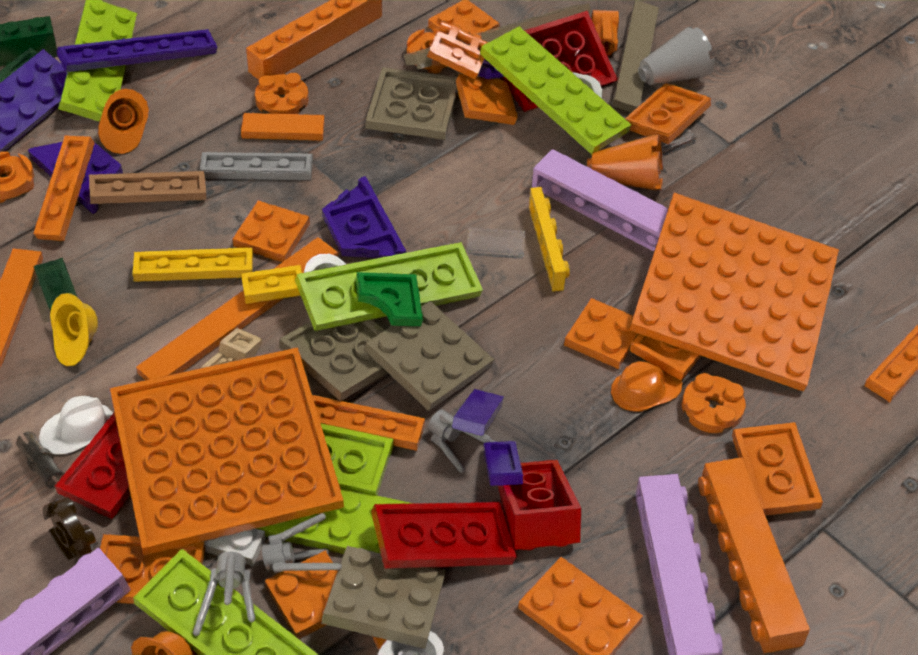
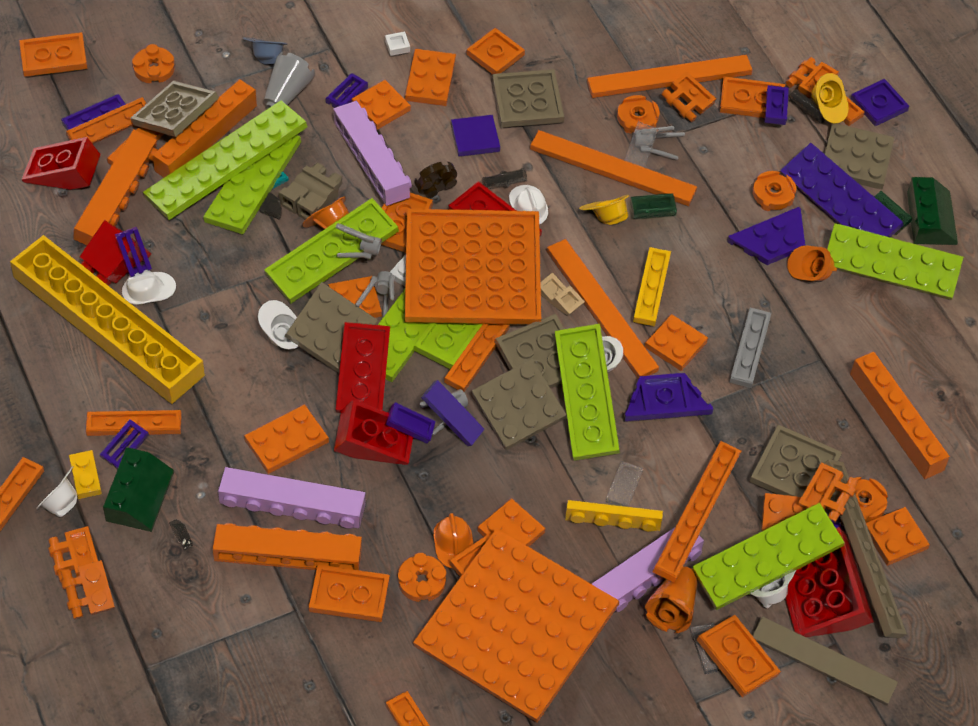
camera: 105 degrees right, 5 degrees up
(64, 188) = (744, 217): orange plate -> none
(136, 50) = (892, 284): dark purple tile -> none
(147, 187) = (735, 269): medium nougat plate -> none
(270, 284) = (612, 320): yellow plate -> none
(271, 87) = (829, 368): orange plate -> none
(282, 126) = (791, 373): orange tile -> none
(393, 294) = (568, 383): green tile -> none
(517, 159) = (696, 512): none -> orange tile
(606, 25) = (869, 645): orange piece -> none
(678, 59) = (797, 680): light grey cone -> none

